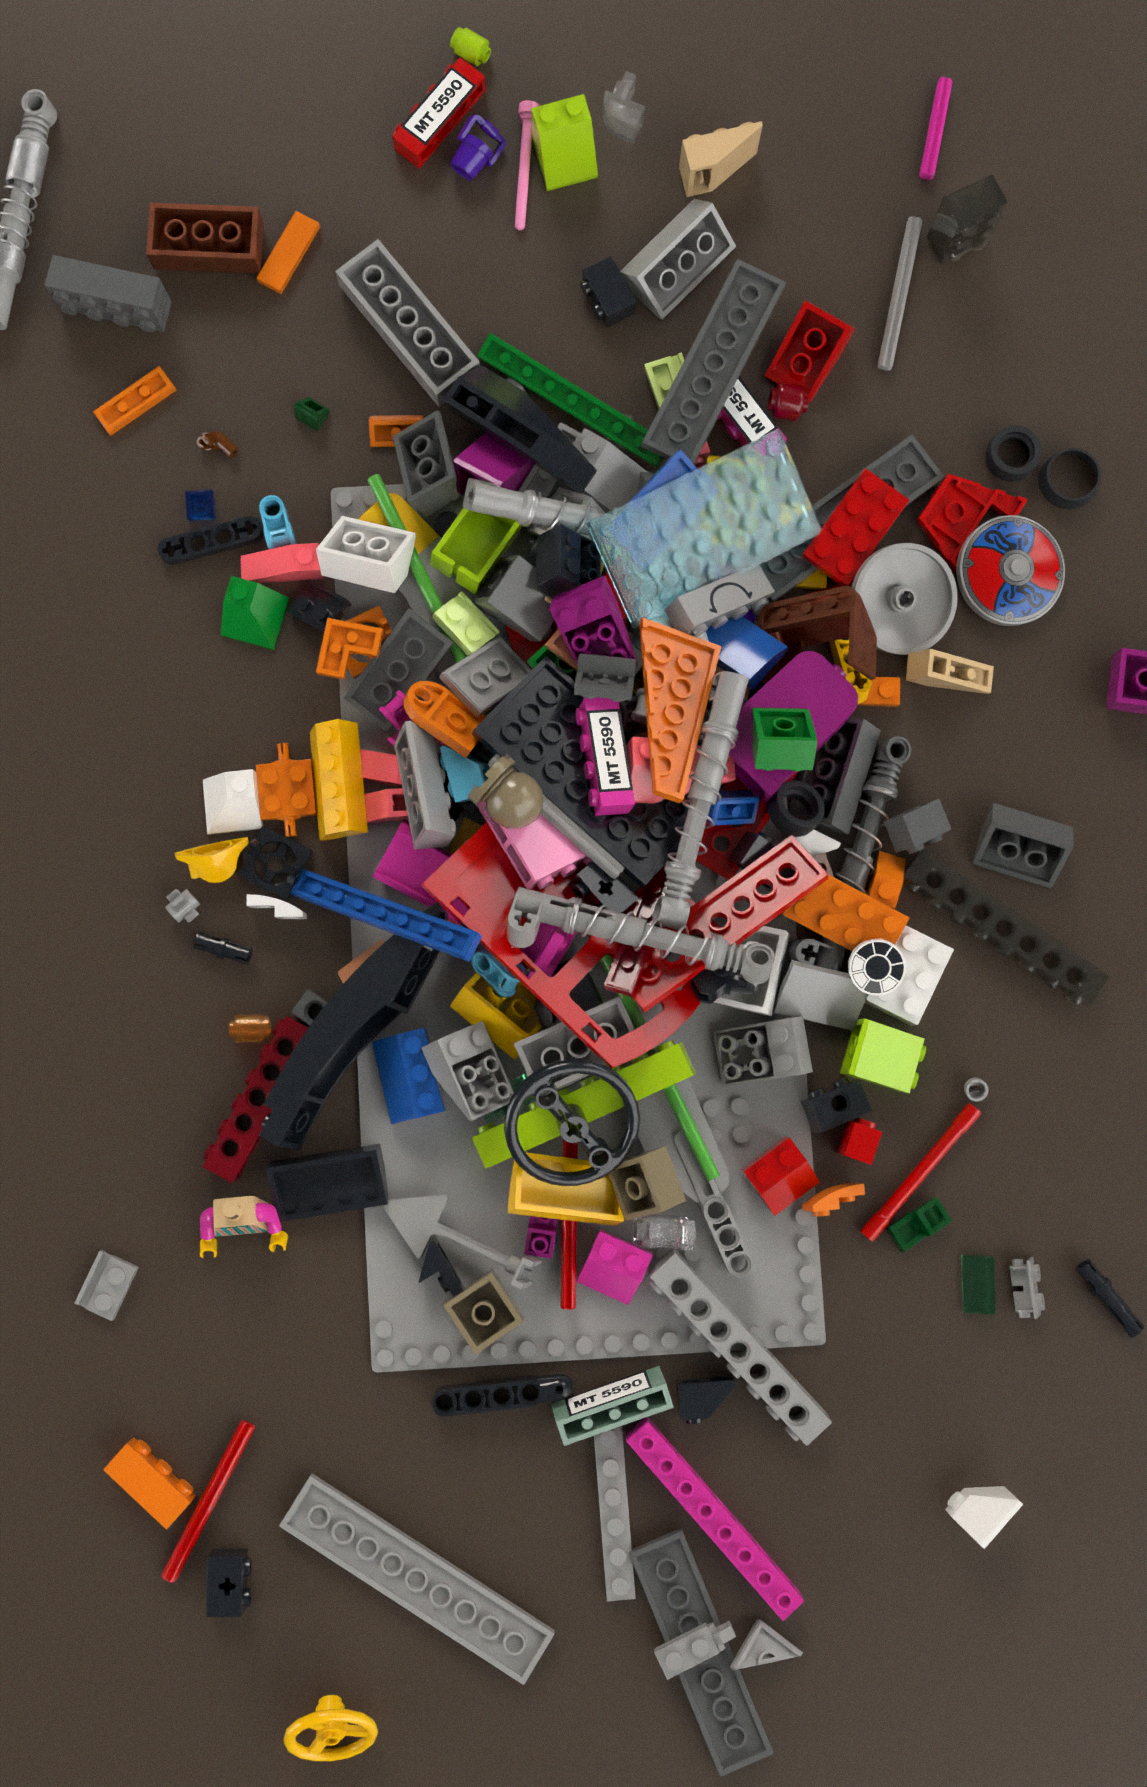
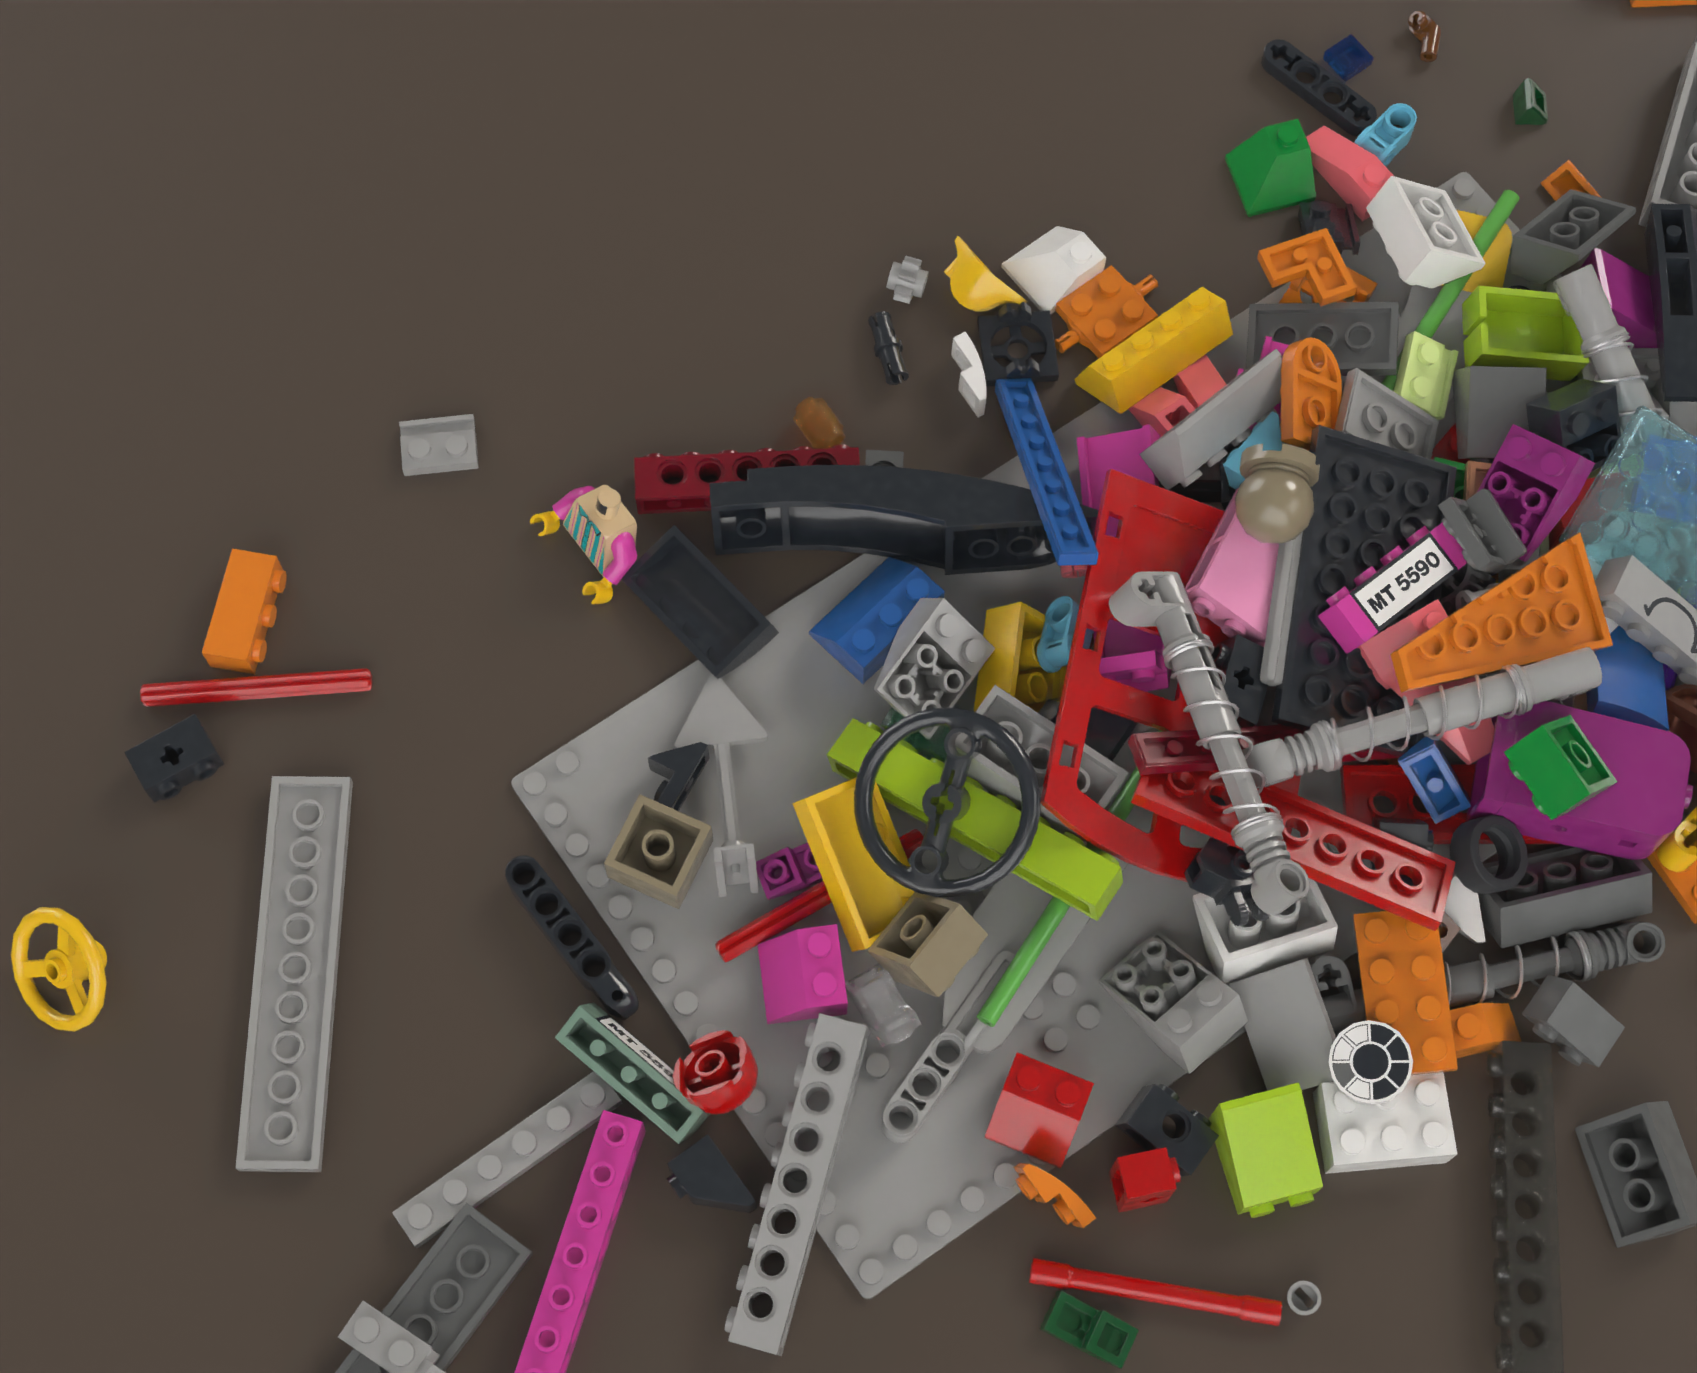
camera: 60 degrees right, 15 degrees down
(645, 1360) = (717, 1073): none -> red cylinder

